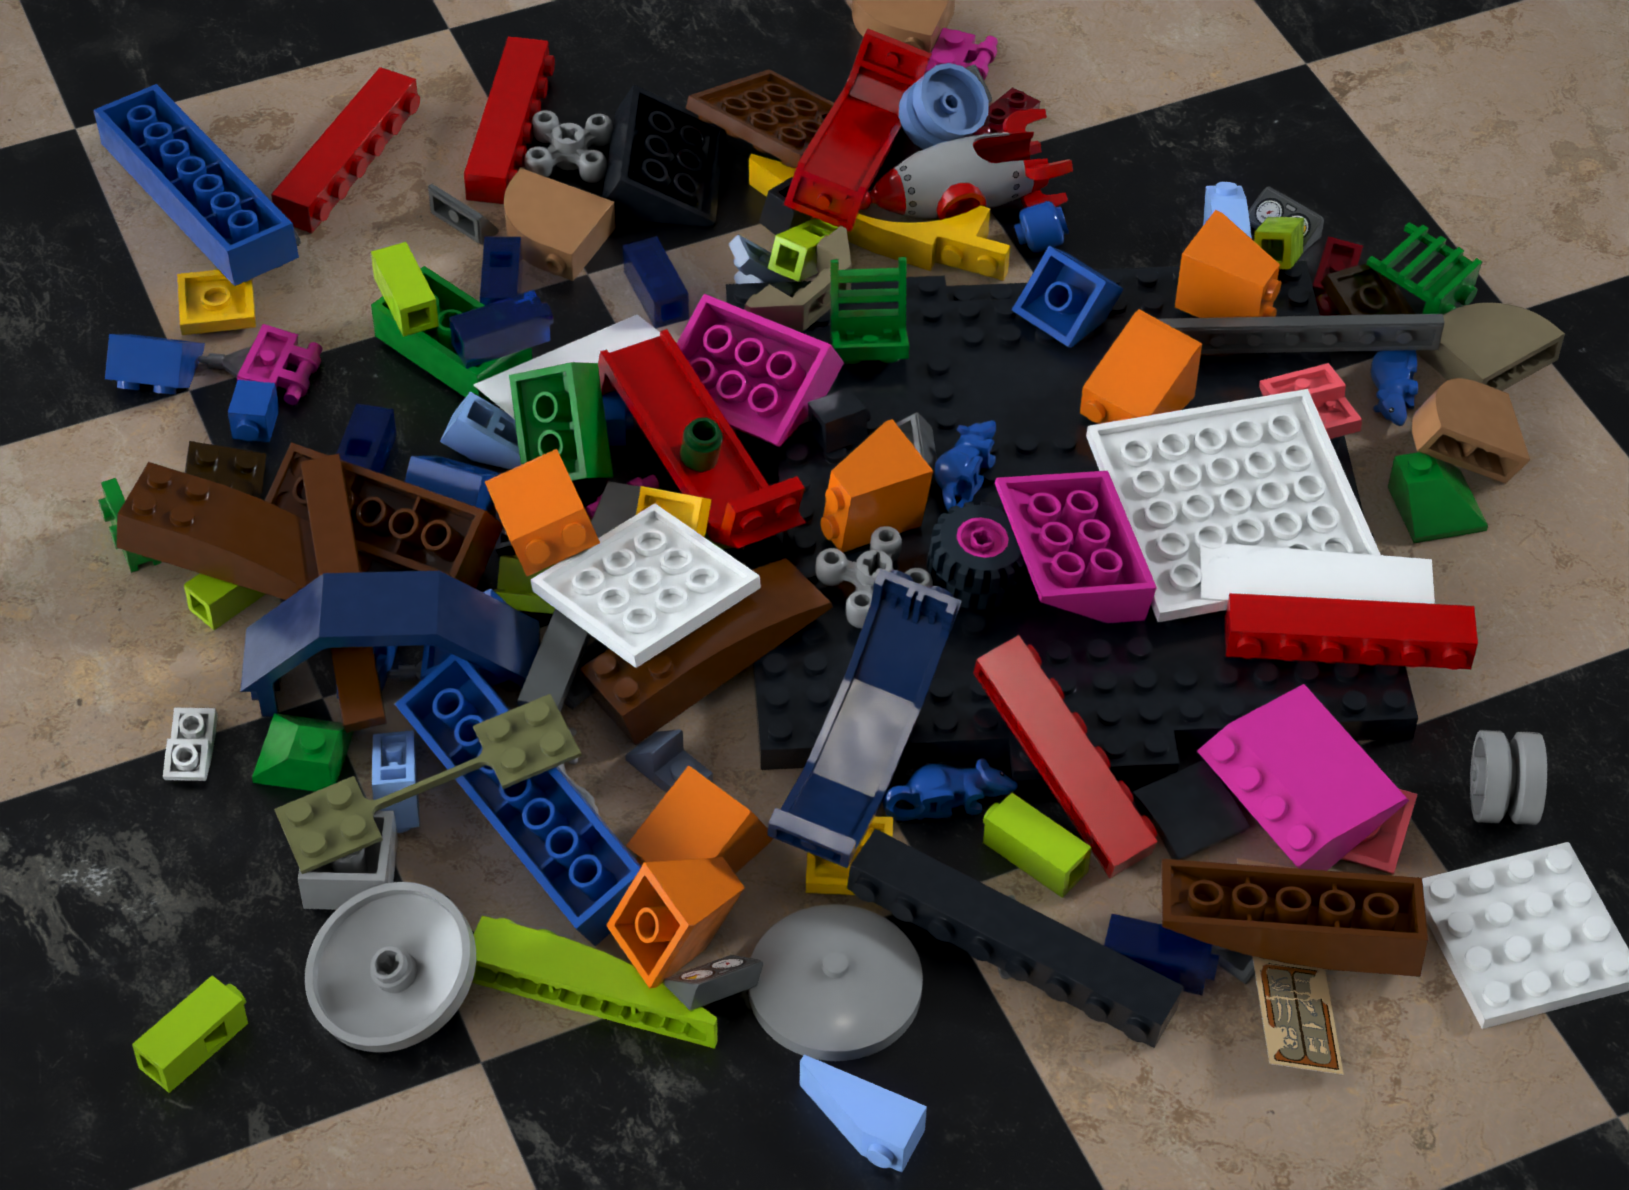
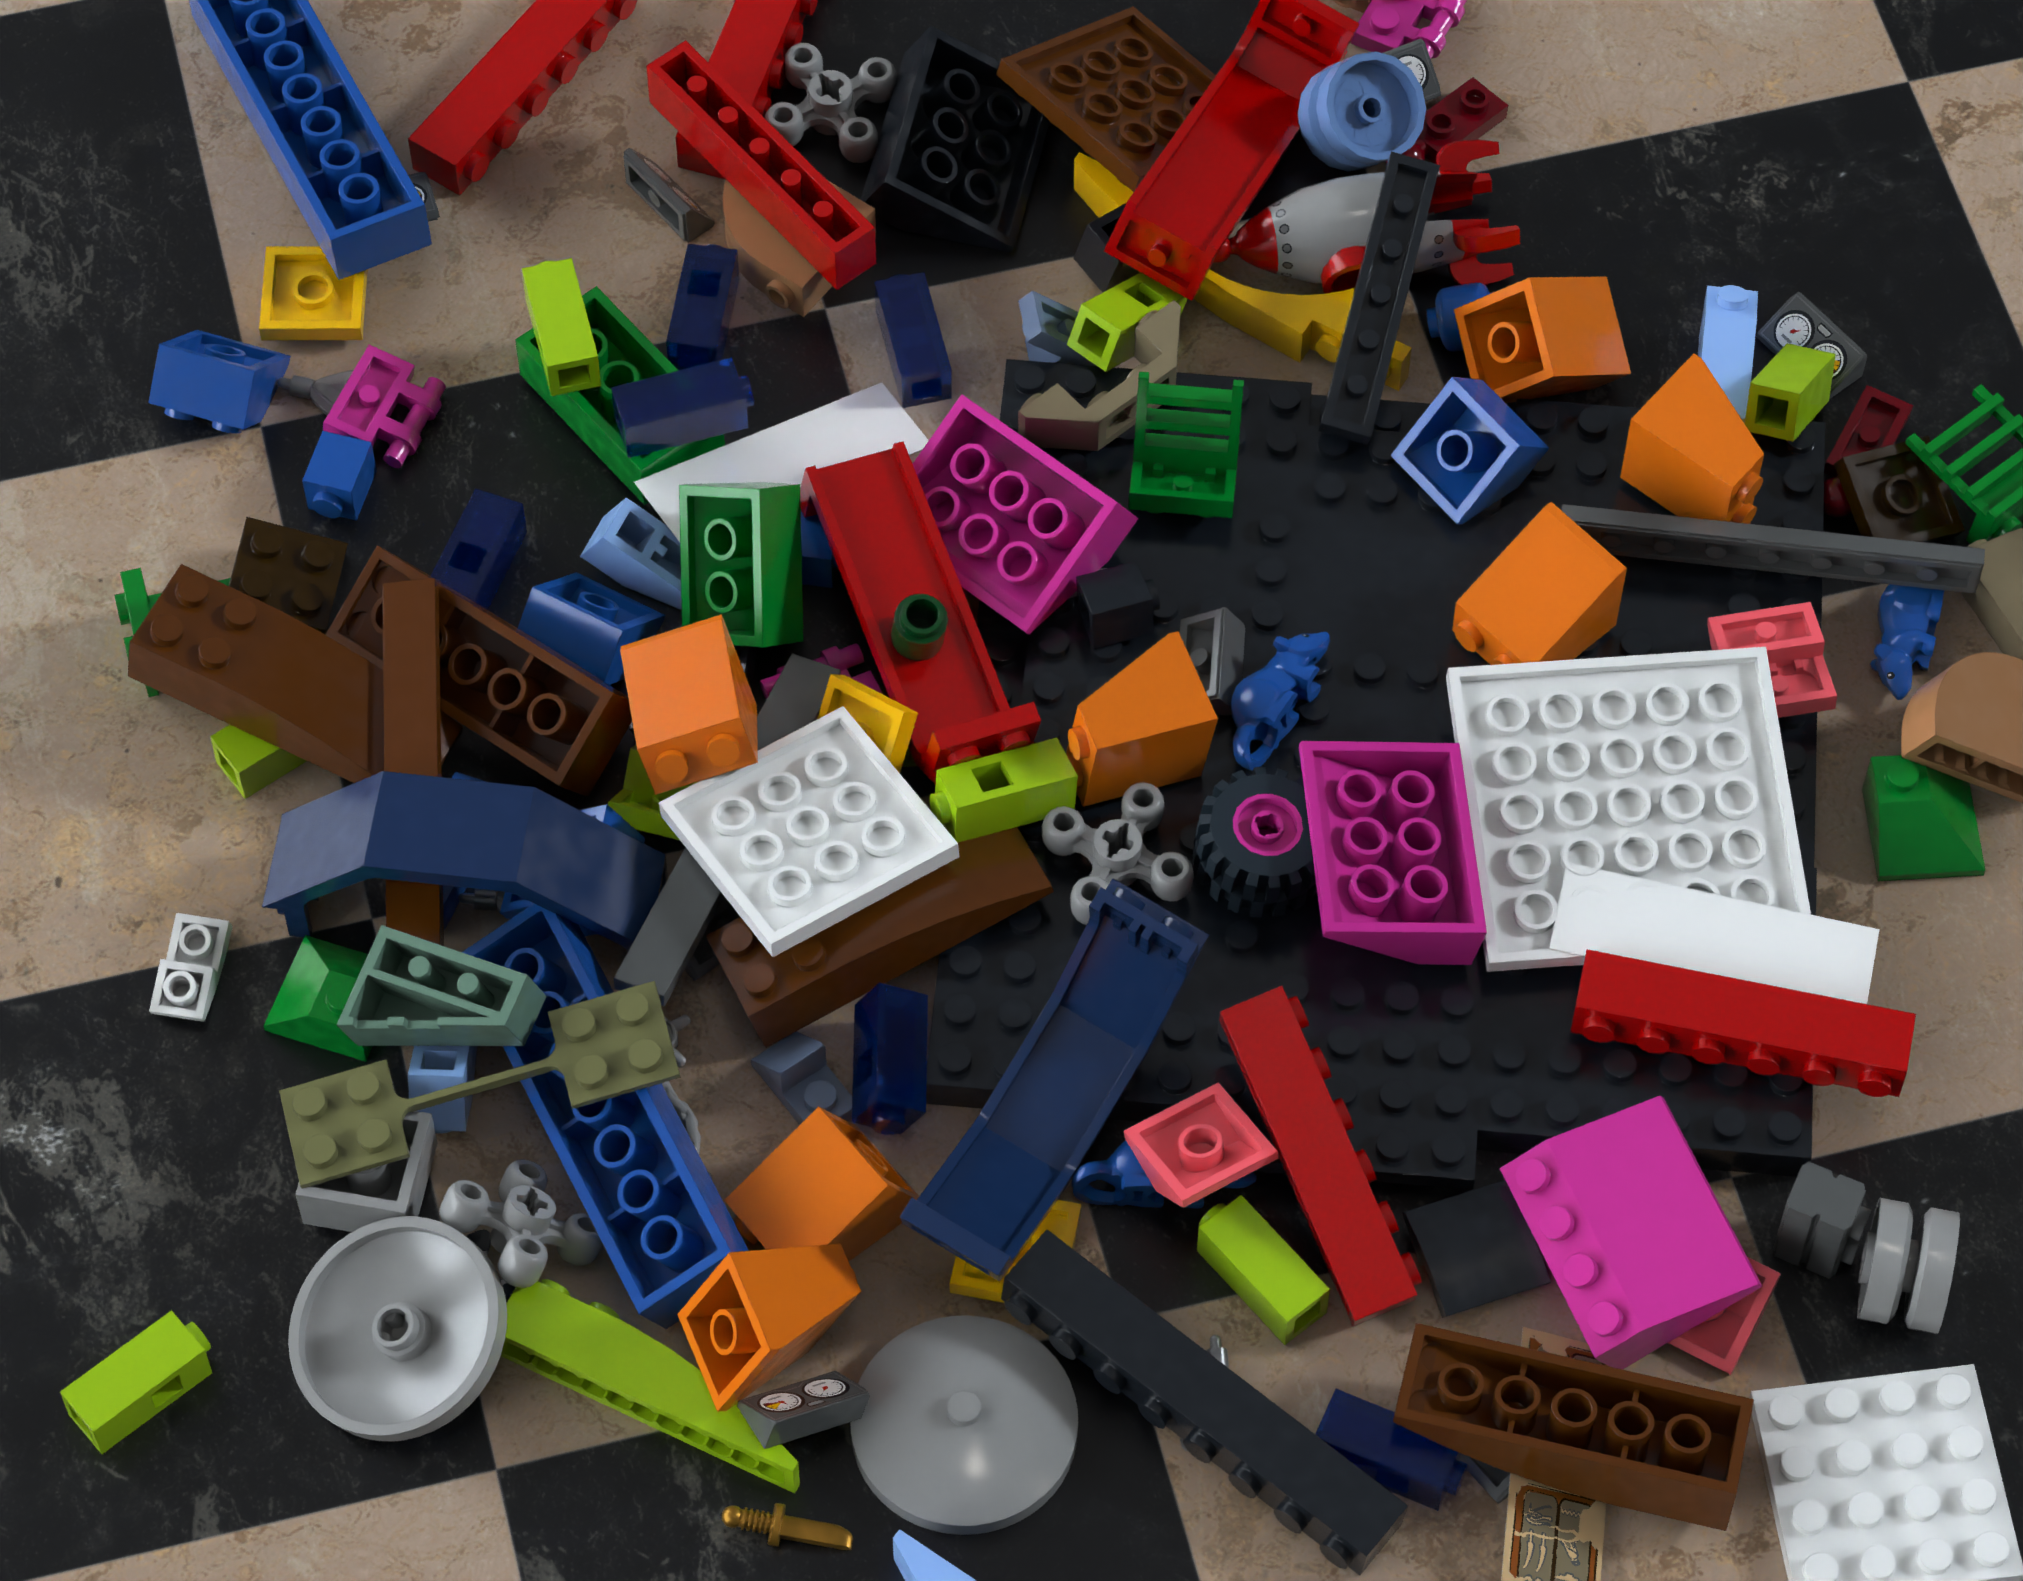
camera: 10 degrees right, 10 degrees up
(387, 726) = (437, 997): none -> sand green wedge
(475, 880) = (521, 1223): none -> light grey gear
(531, 177) = (761, 165): none -> red brick
(714, 1071) = (787, 1527): none -> pearl gold piece
(731, 737) = (889, 1059): none -> clear blue brick
(785, 541) = (1003, 790): none -> lime brick
(974, 761) = (1199, 1146): none -> coral slope
(983, 211) = (1379, 298): none -> black plate
(1102, 225) = (1543, 337): none -> orange slope
(1438, 755) = (1822, 1221): none -> dark grey brick

